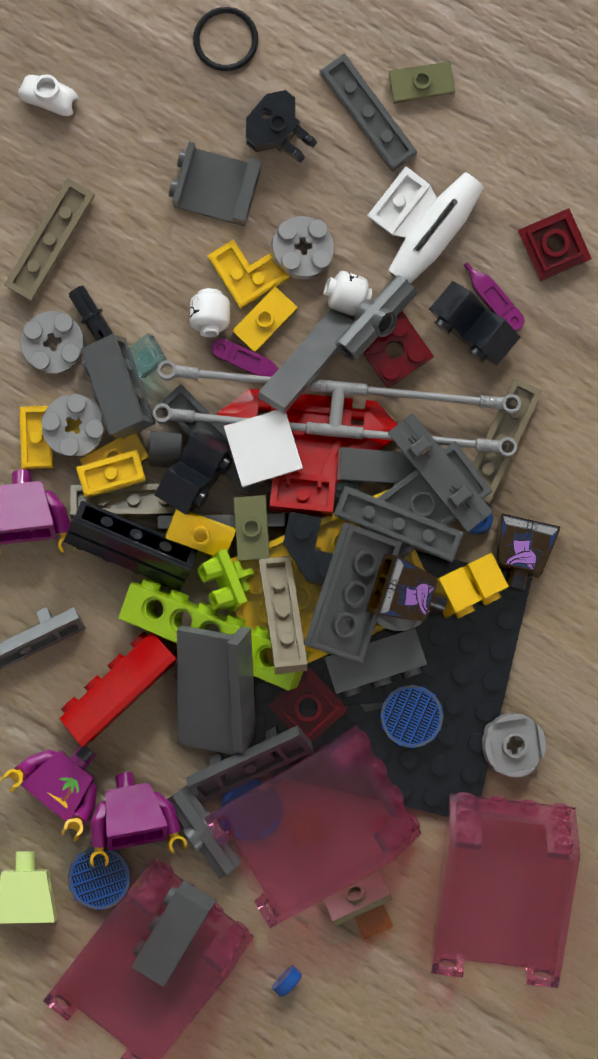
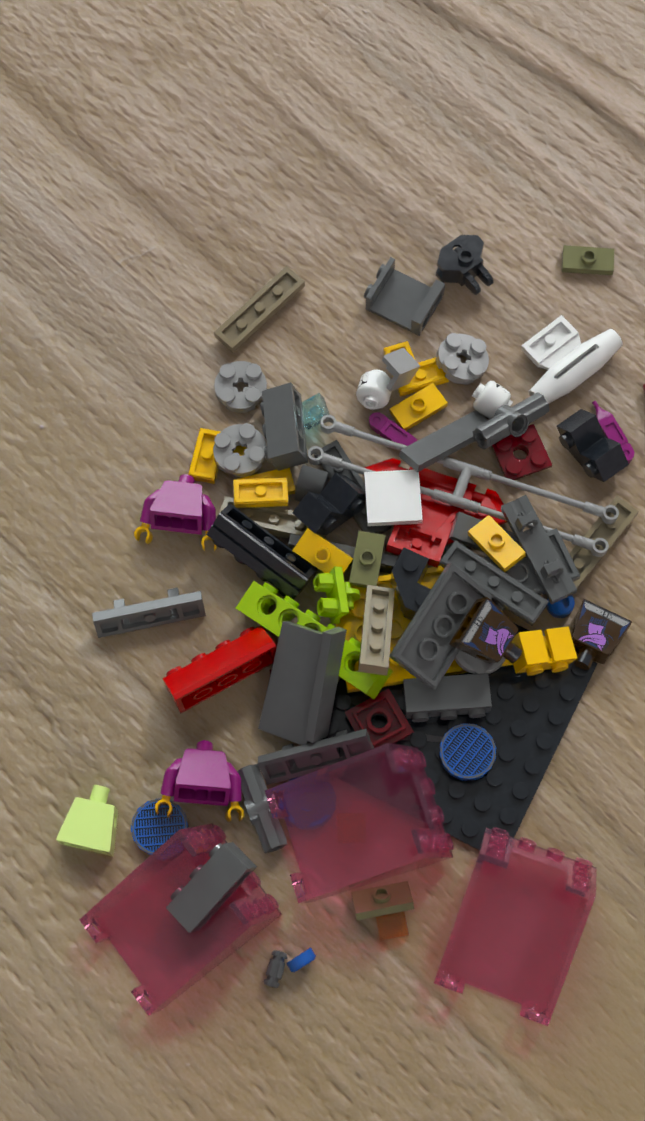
camera: 15 degrees right, 15 degrees down
(48, 94) = (287, 202): white piece -> none
(60, 784) = (147, 735): magenta torso -> none
(90, 313) = (276, 367): black axle -> none
(196, 40) = (433, 217): black tyre -> none
(234, 282) = (402, 368): none -> light grey panel
(262, 996) = (275, 969): none -> dark grey piece
(368, 112) = (539, 273): dark grey tile -> none
(392, 477) = (496, 543): none -> yellow plate
(527, 755) = (538, 807): light grey plate -> none

